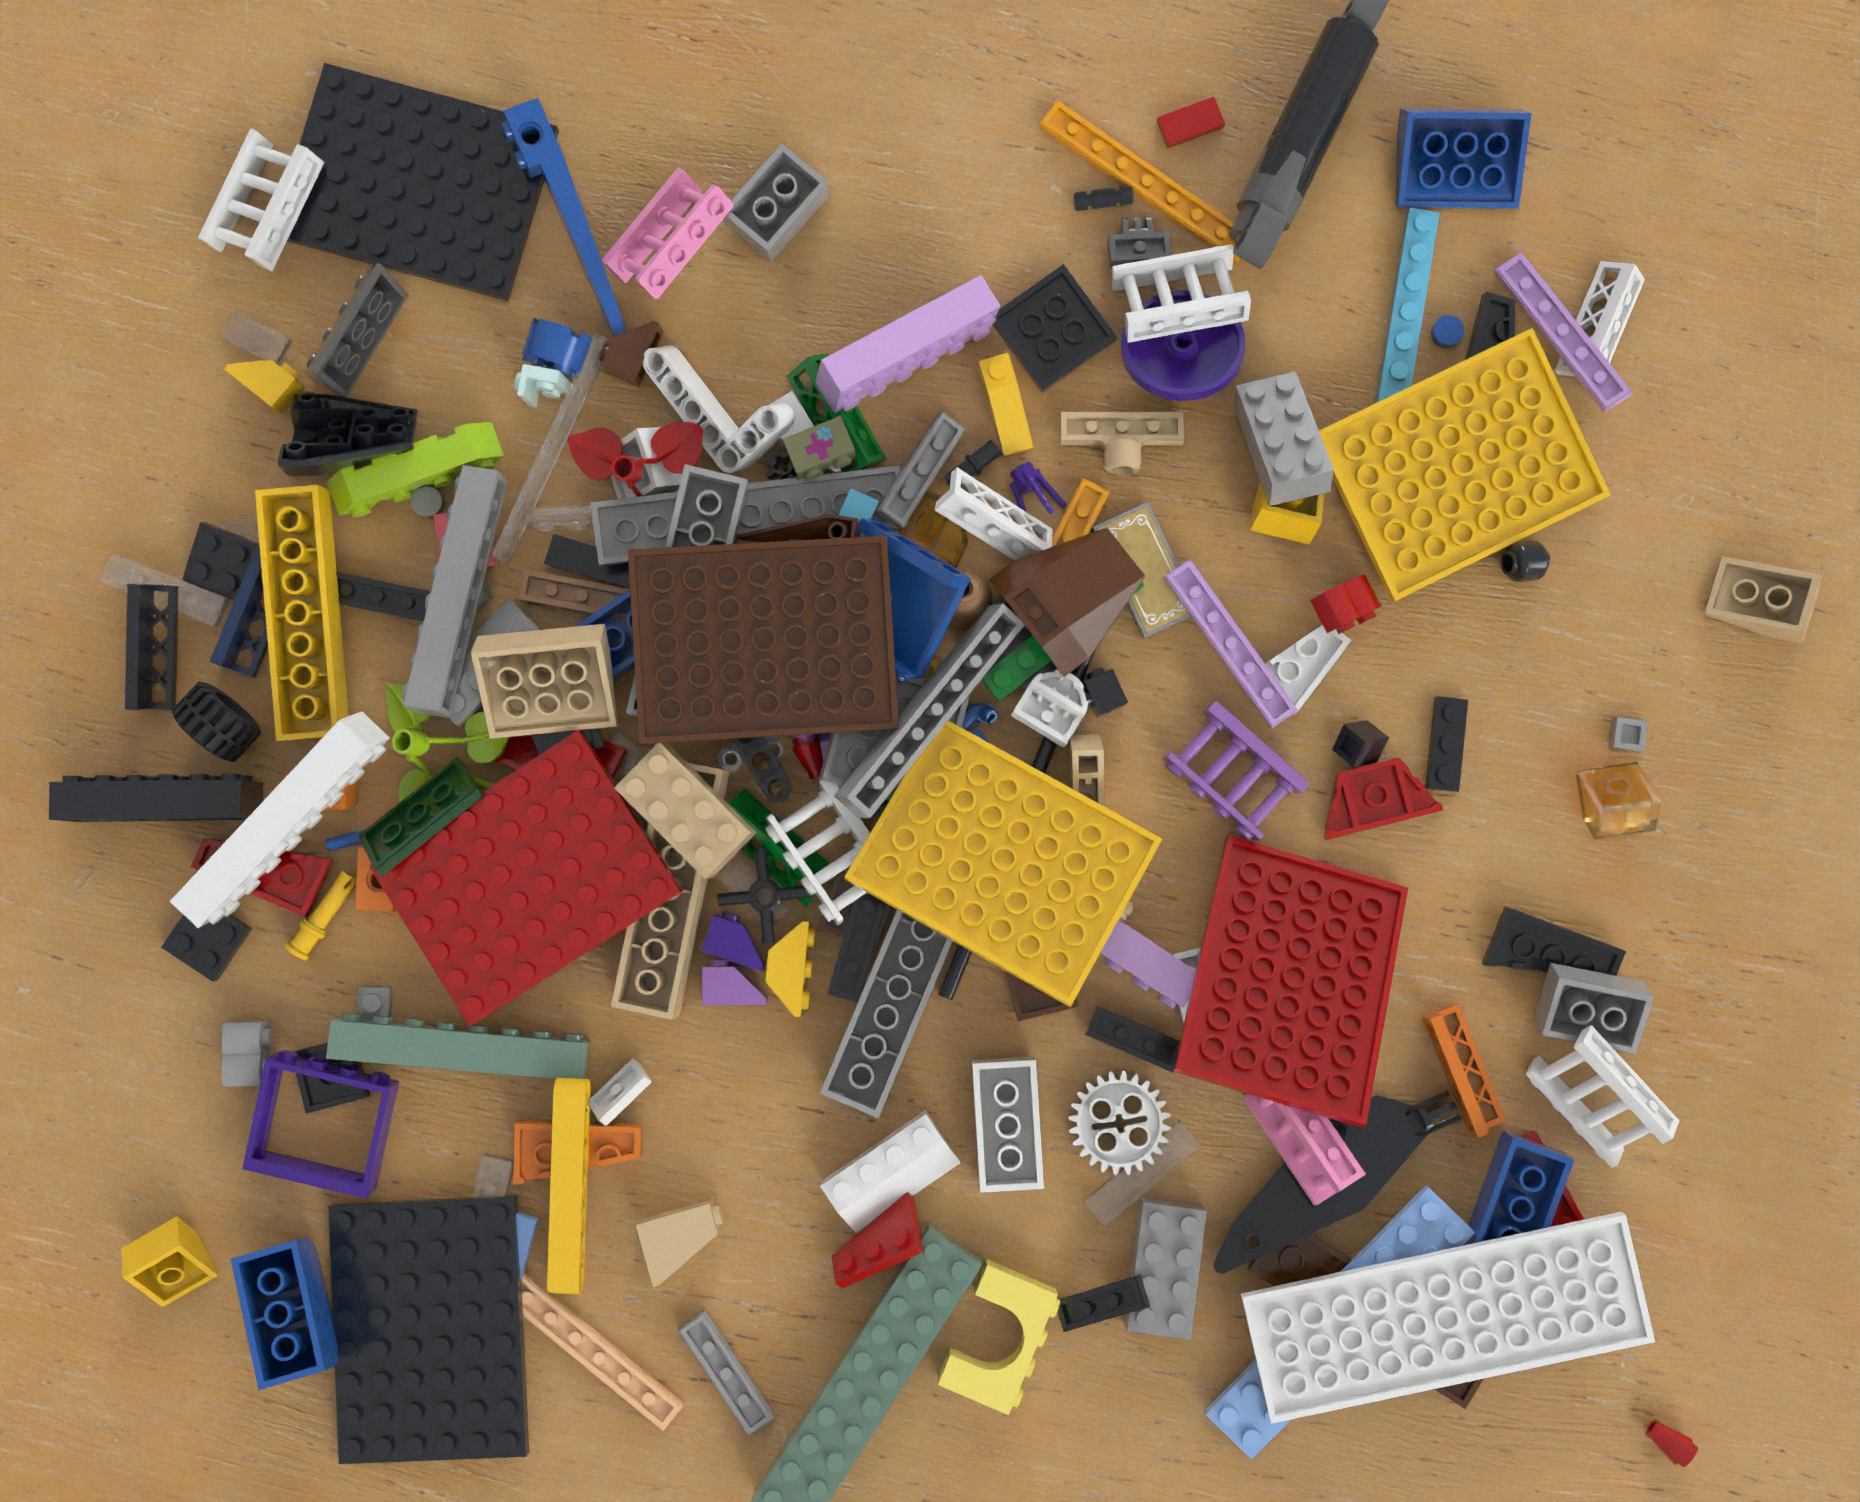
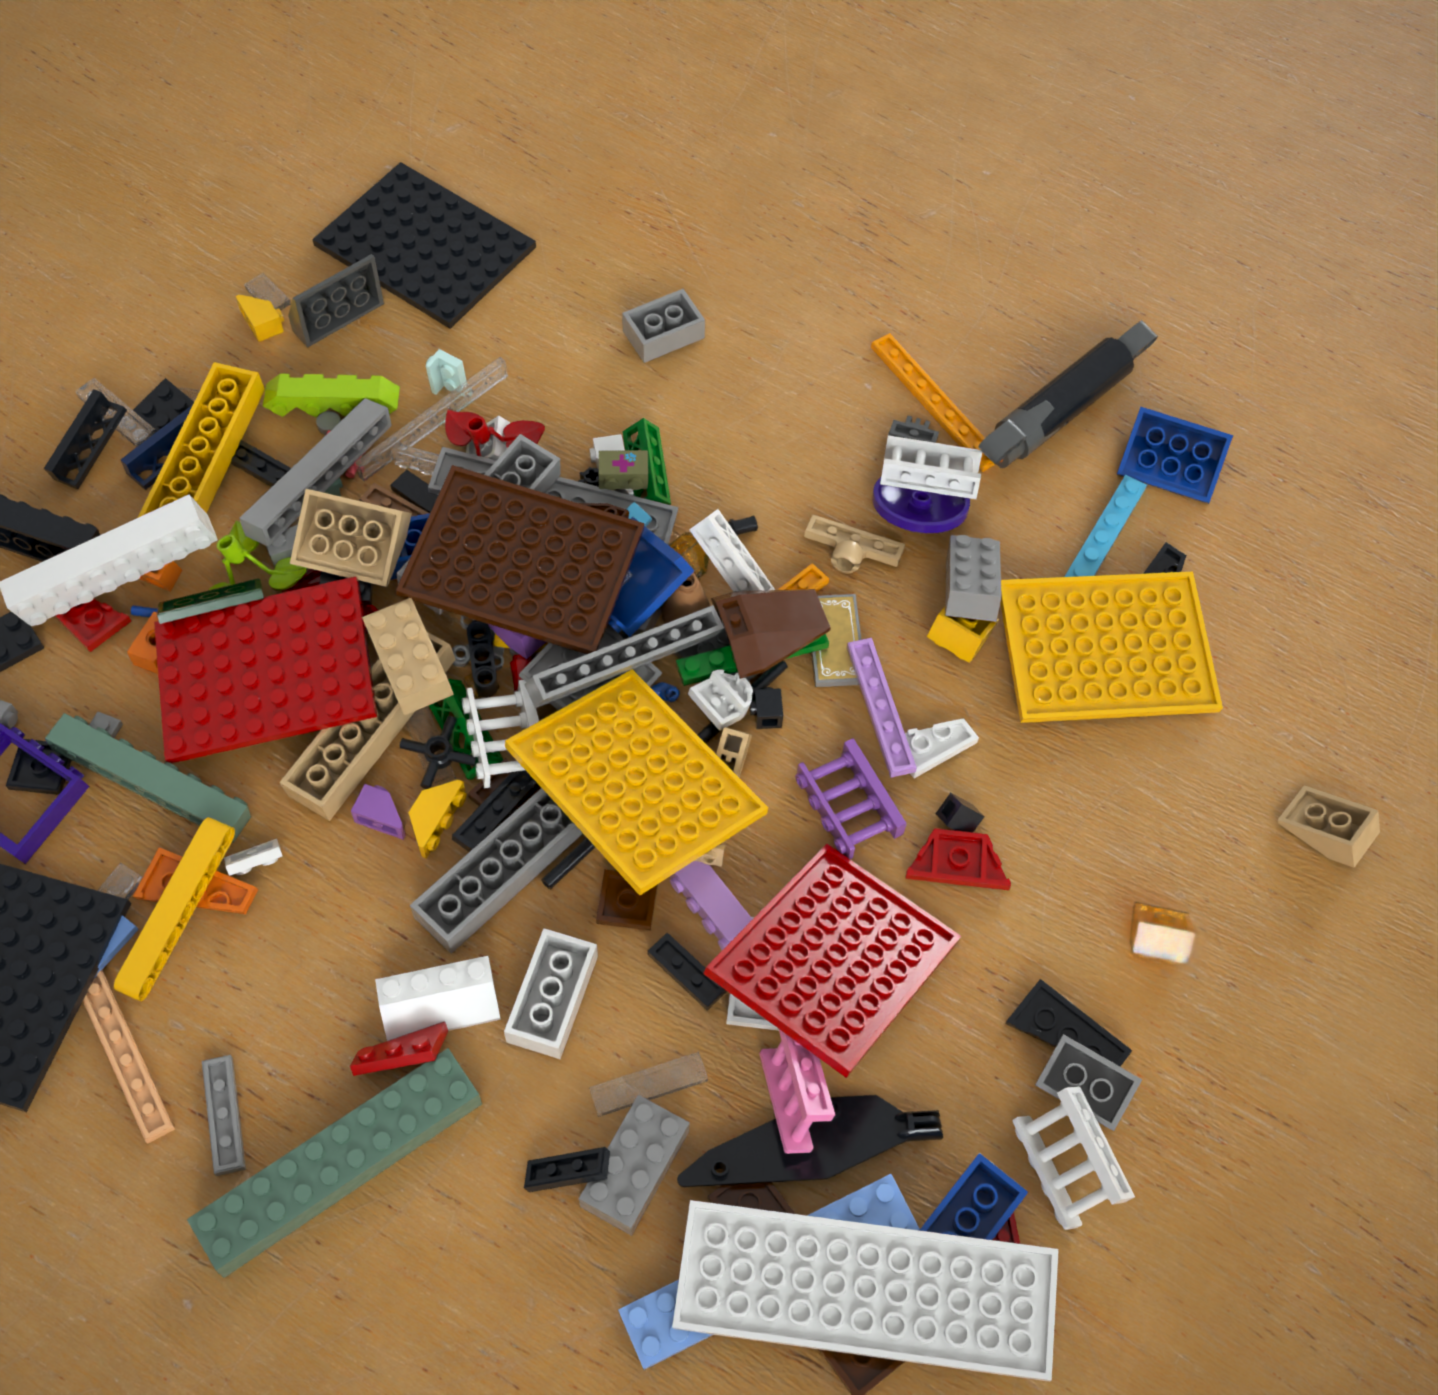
camera: 20 degrees right, 25 degrees down
(216, 721) = (102, 495): black tyre -> none
(284, 206) = (322, 225): white fence -> none
(313, 928) = (89, 658): yellow pin -> none
(342, 433) = (287, 355): black wedge -> none
(547, 159) = (516, 249): blue piece -> none
(555, 346) = (469, 349): blue brick -> none
(626, 352) = (520, 380): reddish brown slope -> none
(655, 222) = (579, 315): bright pink fence -> none
(676, 1236) = (240, 984): tan slope -> none
(712, 415) = (574, 452): white beam -> none
(732, 941) = (397, 777): dark purple slope -> none
(907, 344) = (716, 428): lavender brick -> none
(920, 470) = (684, 518): light grey tile -> none
(999, 1382) = (452, 1209): light yellow arch -> none
(1005, 404) = (773, 497): yellow slope -> none
(1029, 480) = (771, 551): dark purple plant -> none
(1053, 328) = (829, 463): black plate -> none
(1103, 198) = (899, 399): black axle -> none
(1124, 1152) = (640, 1055): white gear -> none
(1190, 122) = (981, 376): red tile -> none
(1346, 603) = (983, 708): red brick -> none
(1446, 744) = (1031, 843): black plate -> none
(1447, 331) = (1128, 562): blue tile -> none
(1457, 1072) = (951, 1101): orange fence -> none
(1525, 561) = (1138, 730): black head -> none
(1563, 332) = (1217, 586): lavender tile -> none
(1616, 312) = (1253, 596): white fence -> none
(1628, 734) = (1187, 888): light grey tile -> none

